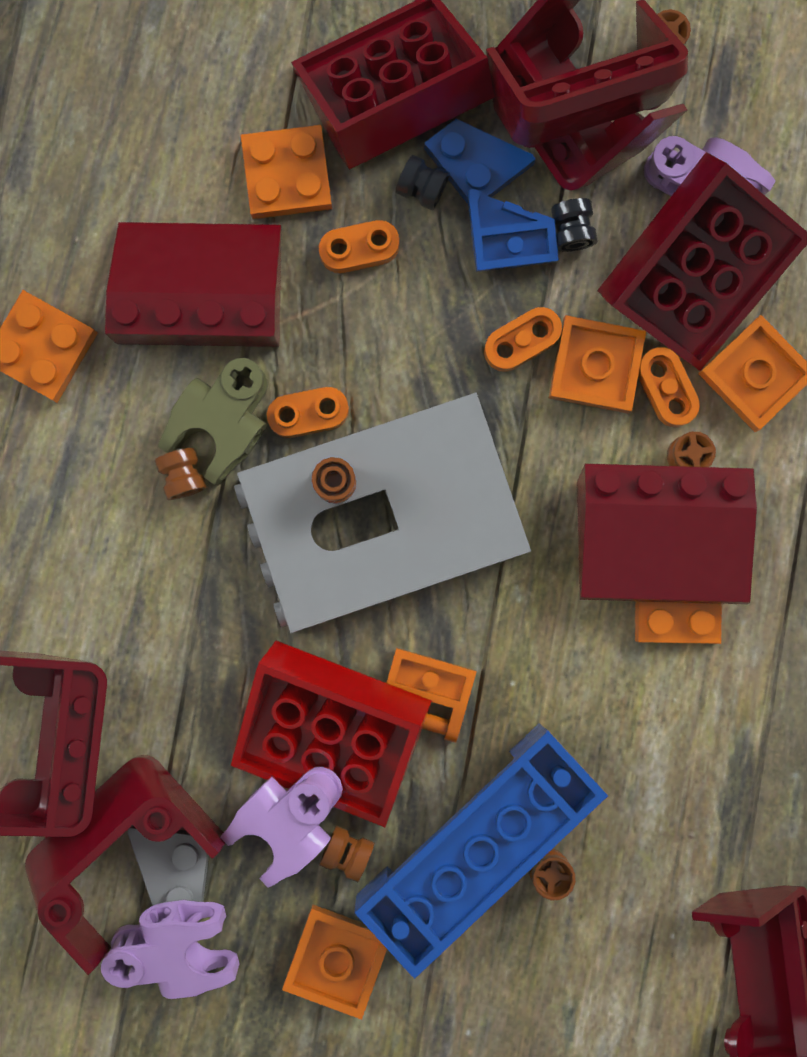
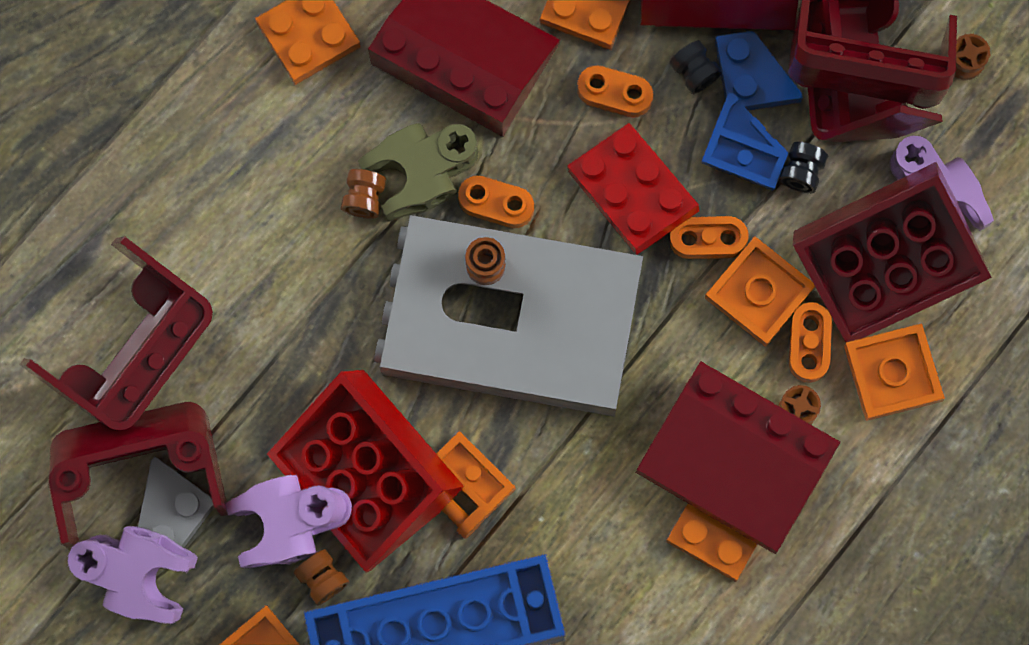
camera: 40 degrees right, 10 degrees down
(428, 331) = (633, 188): none -> red plate

